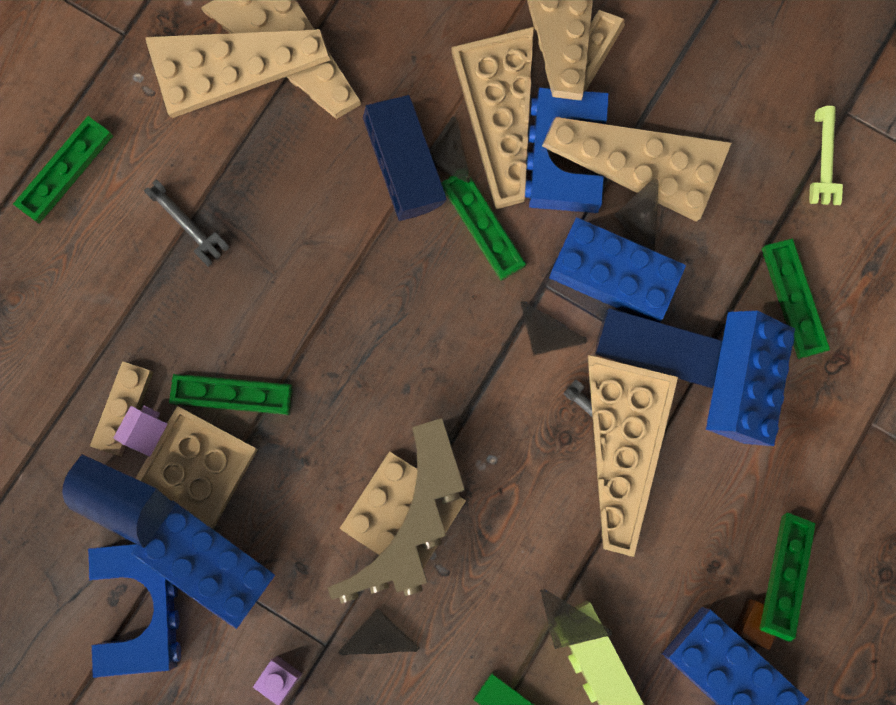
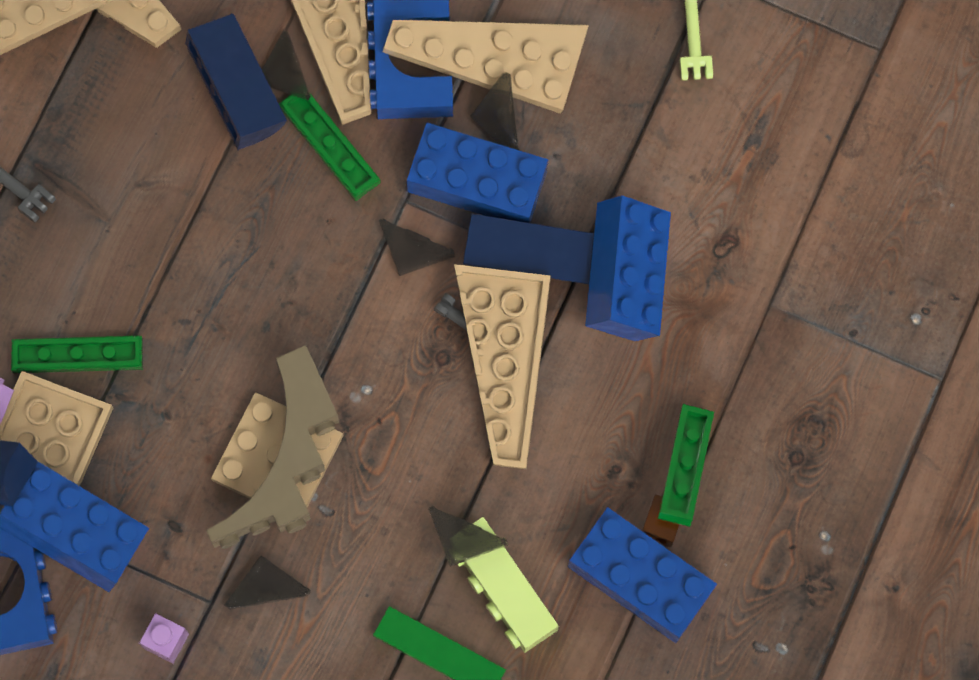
camera: 10 degrees left, 5 degrees down
(795, 298) = (672, 182): green plate -> none

